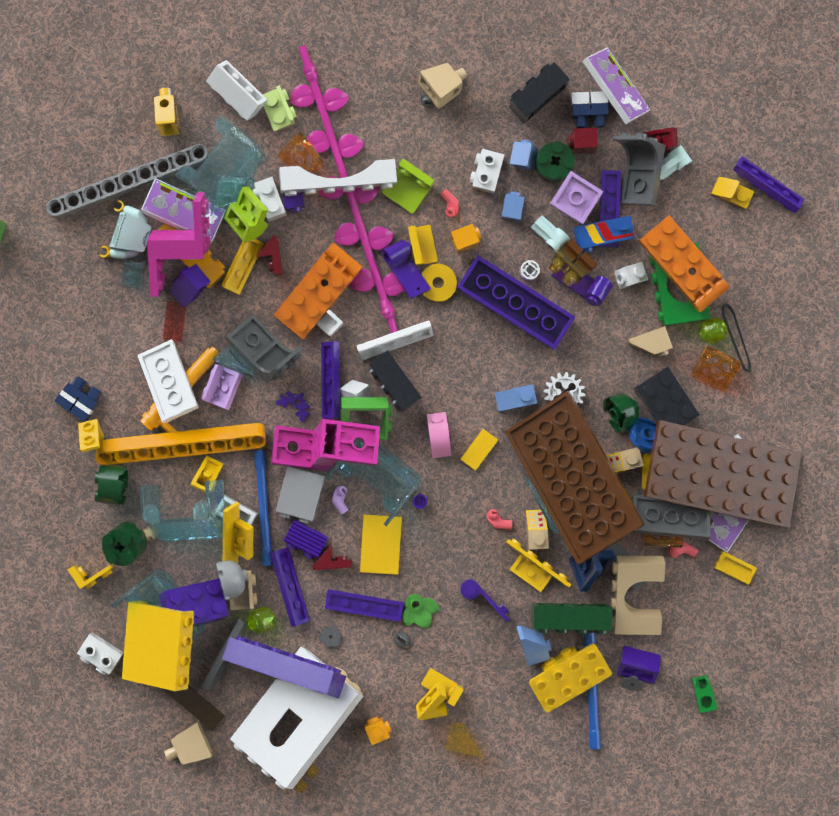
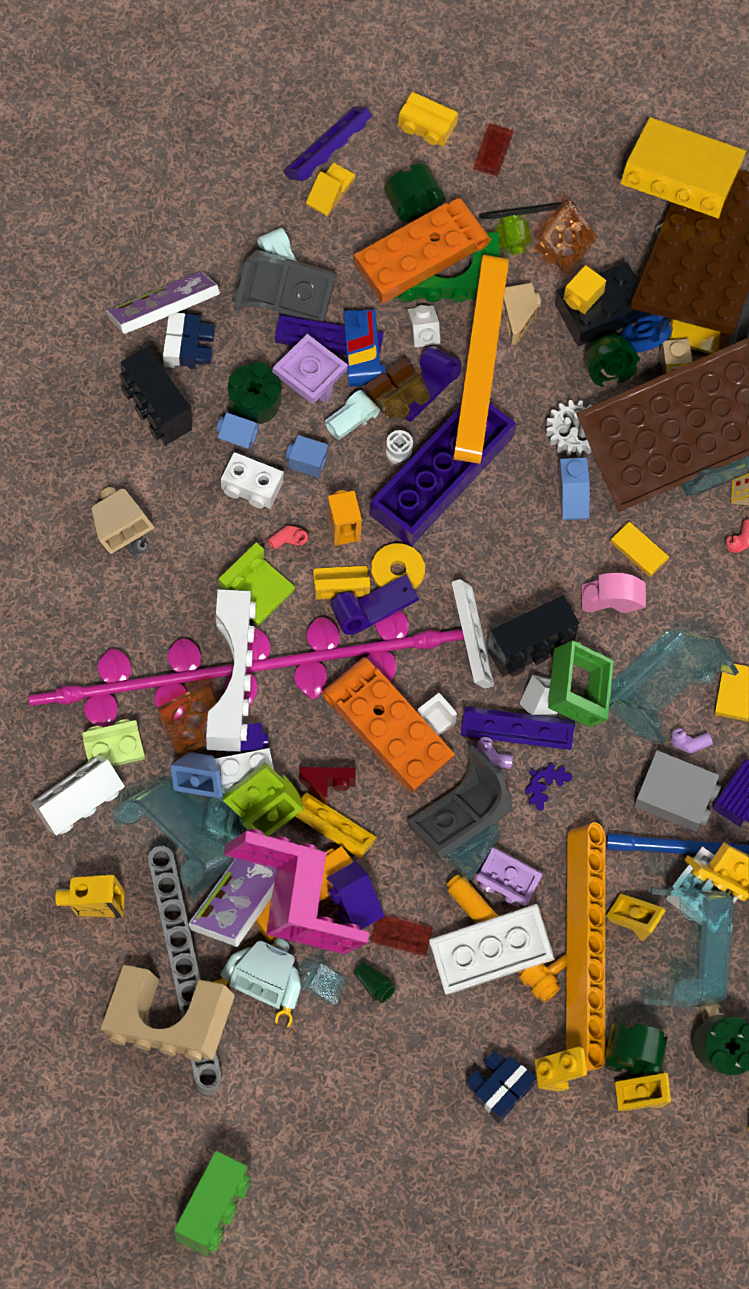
camera: 85 degrees left, 20 degrees down
(85, 492) = (643, 1092): none -> yellow slope
(86, 151) = (194, 1035): none -> tan arch
(138, 308) = (376, 983): none -> dark green cone
(259, 167) = (197, 775): none -> medium blue slope
(308, 364) = (502, 760): none -> lavender arm
(325, 445) = (614, 735): dark pink bracket -> none
(420, 501) = (706, 626): dark purple piece -> none
(583, 141) = (232, 348): dark red brick -> none
(599, 317) = (481, 359): none -> light orange beam
(665, 136) = (243, 246): dark red slope -> none
(665, 384) = (584, 289): none -> yellow brick
(732, 253) = (414, 192): none -> dark green brick
(785, 307) = (493, 150): none -> clear red tile
(785, 447) = (683, 167): none -> yellow panel
(800, 255) = (427, 119): none -> yellow brick

